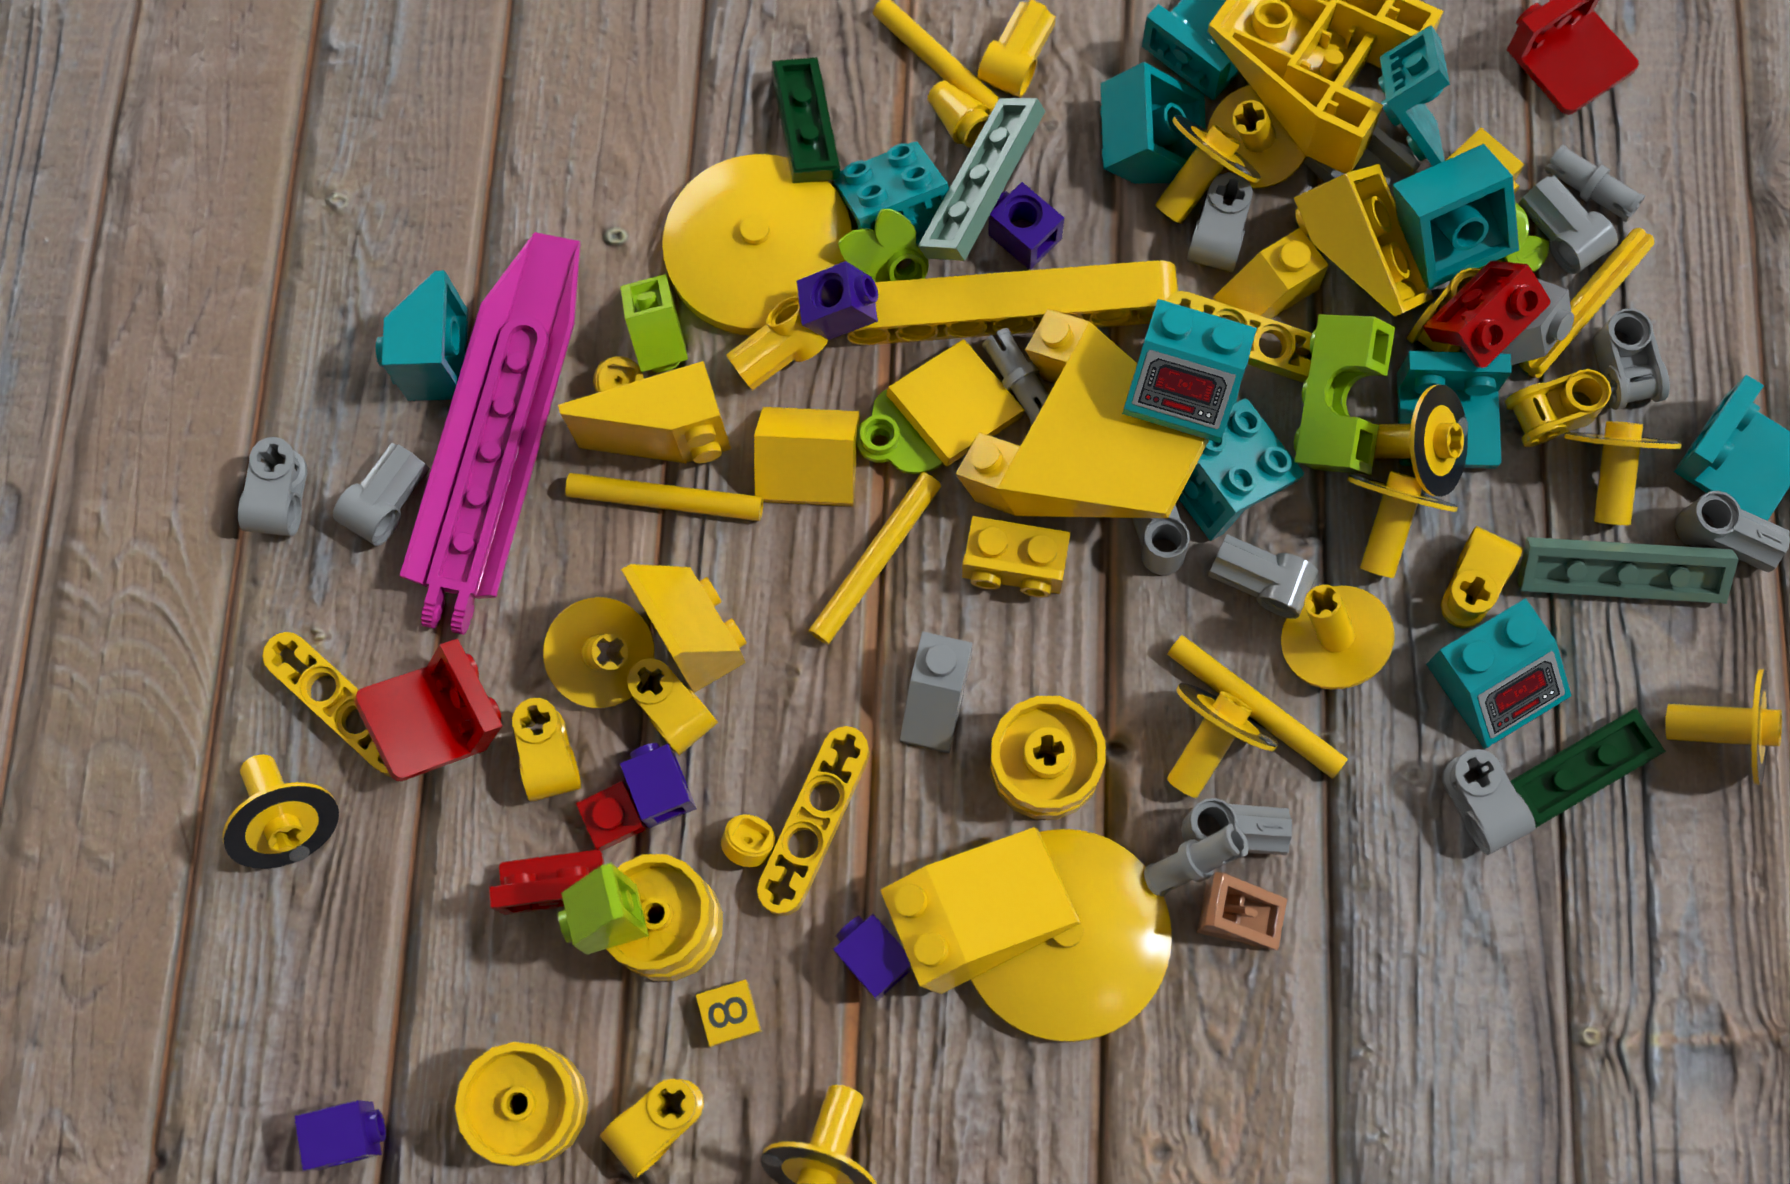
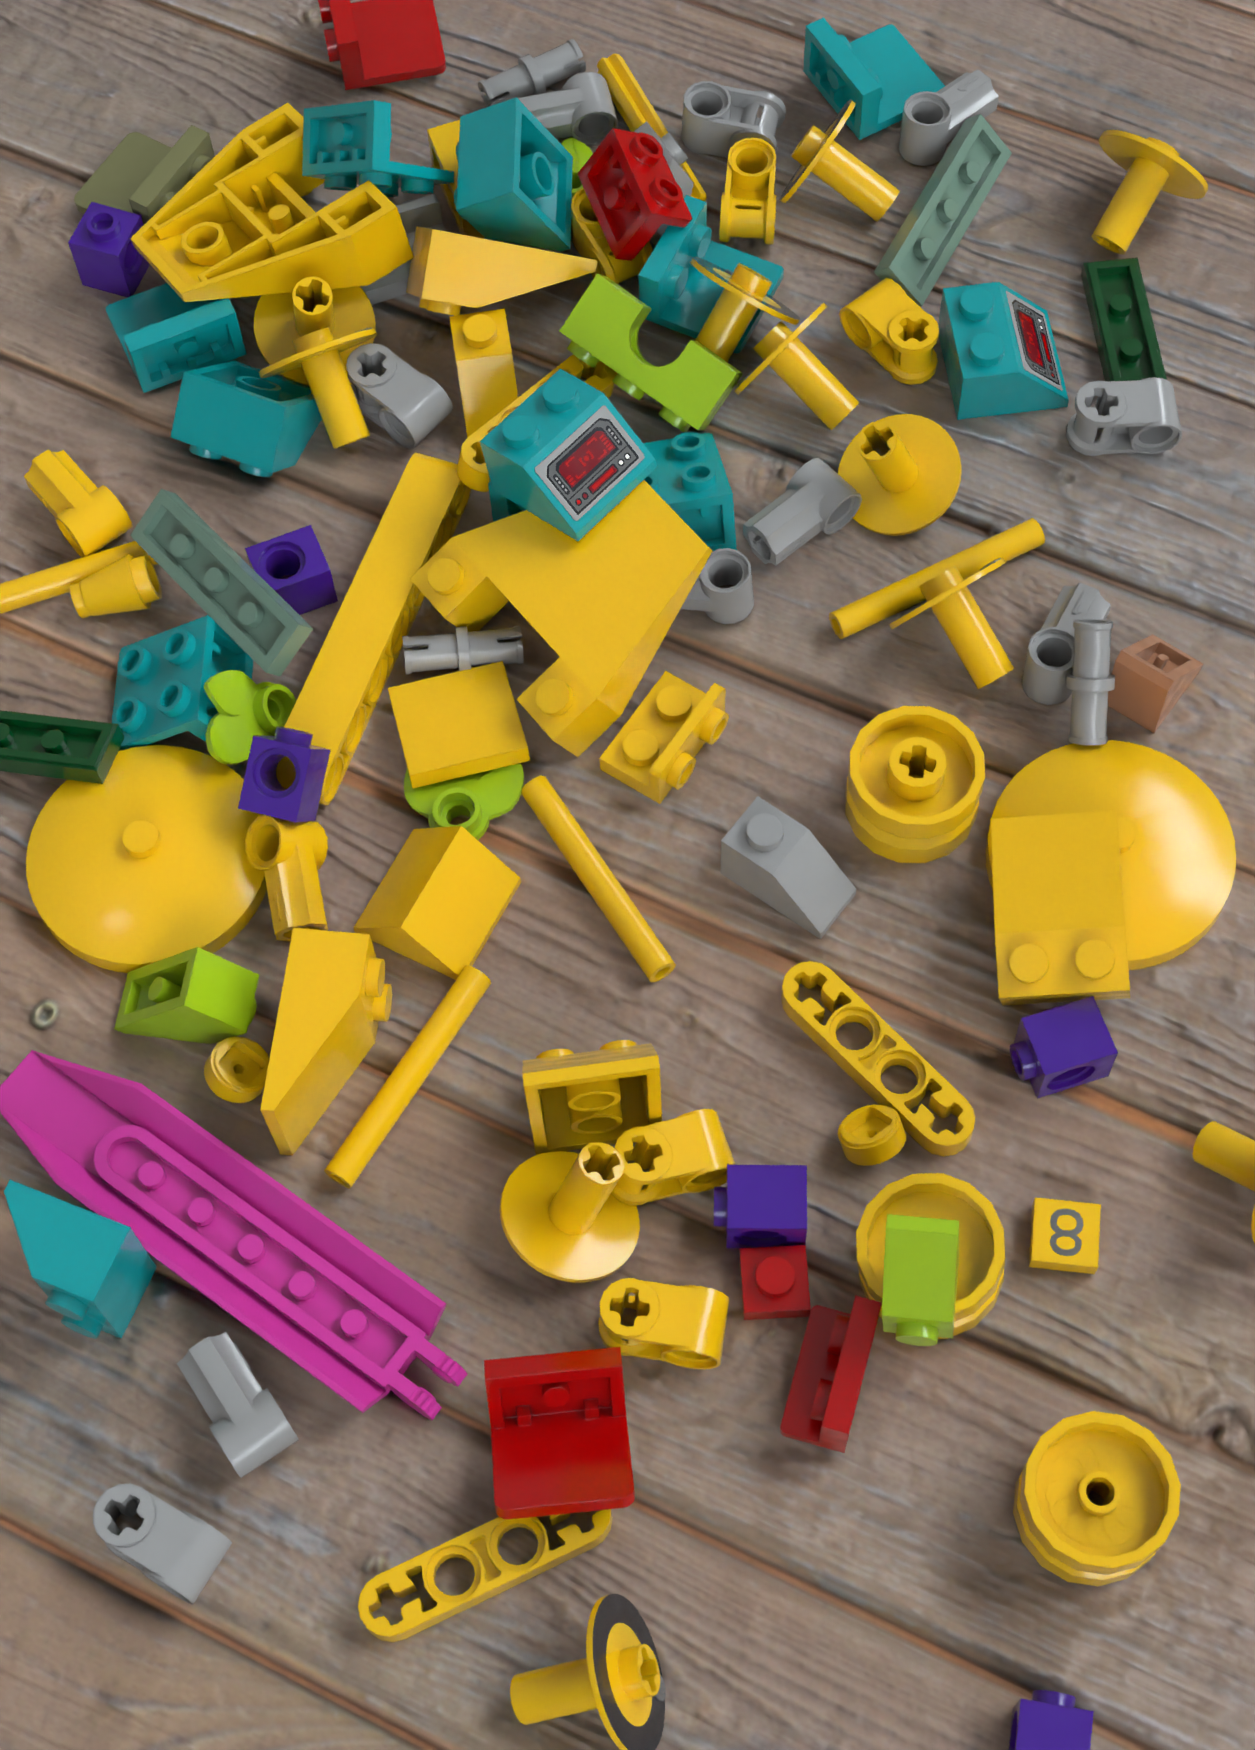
camera: 70 degrees left, 10 degrees down
(646, 1128) = (1170, 1371): yellow piece -> none

